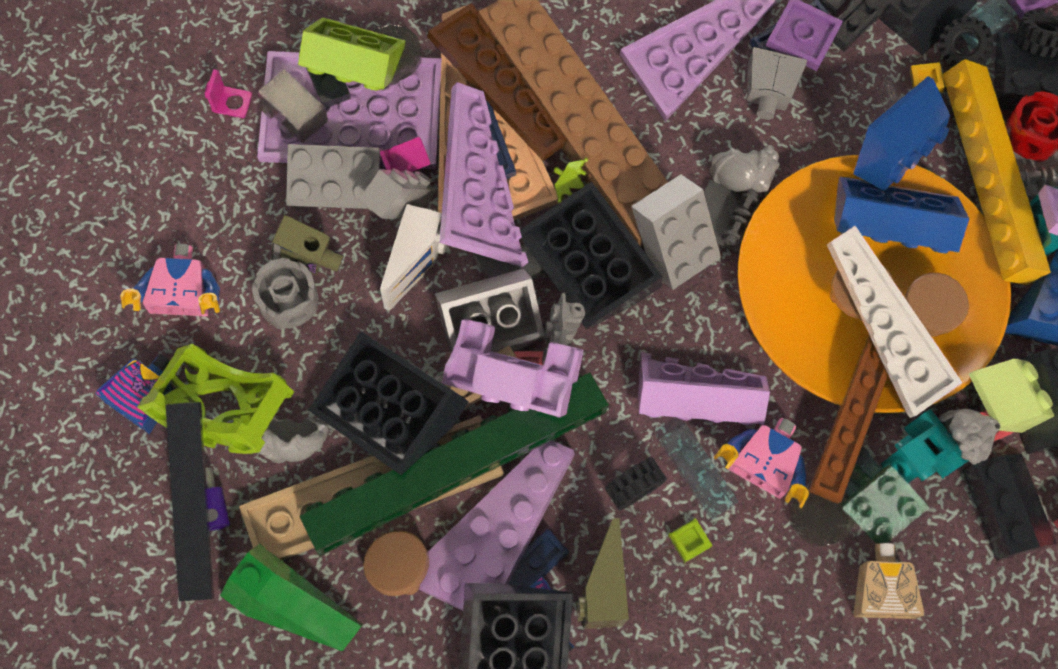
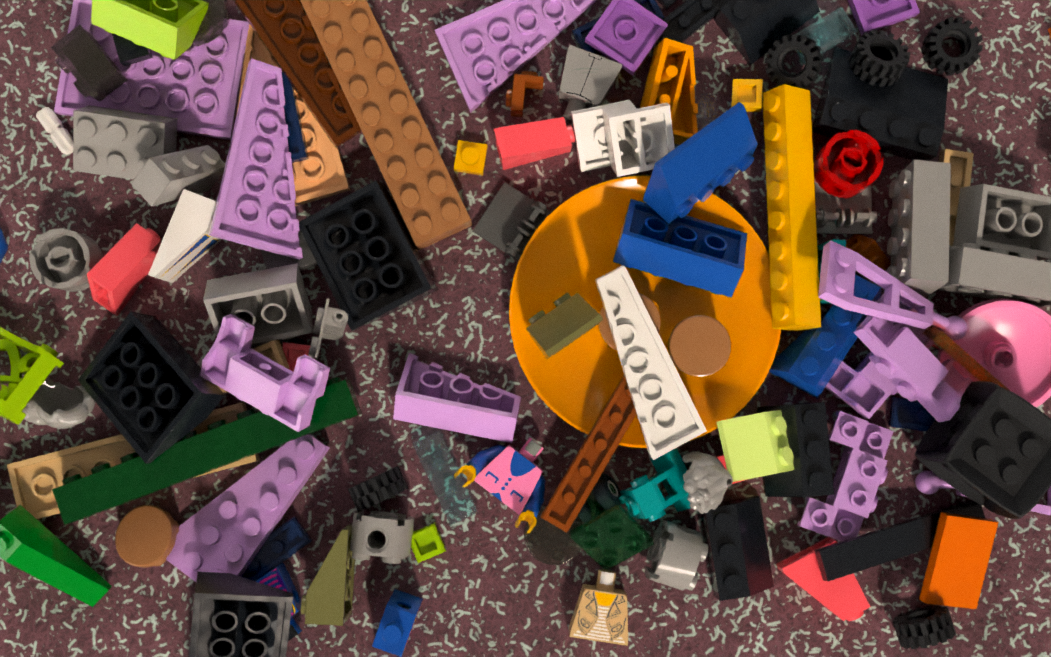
camera: 10 degrees right, 15 degrees up
(218, 94) = (21, 38): dark pink bracket -> none
(256, 174) = (55, 127): none -> white piece
(298, 241) = (80, 211): olive torso -> none
(343, 298) = (123, 268): none -> coral slope
(406, 156) = (193, 132): dark pink bracket -> none
(569, 178) = (359, 171): lime piece -> none
(654, 516) = (394, 526): none -> light grey brick
(672, 160) = (470, 157): none -> yellow plate
(676, 628) = (397, 623): none -> blue torso
(677, 230) = (451, 243): light grey brick -> none
(709, 99) = (516, 96): none -> dark orange bracket
(737, 131) = (533, 141): none -> coral slope
(745, 171) = (539, 182): light grey hair -> none
(803, 292) = (563, 324): none -> olive slope
(821, 121) = (622, 136): none -> white bracket
(855, 84) = (672, 82): none -> light orange wedge
(954, 517) = (675, 556): none -> light grey brick

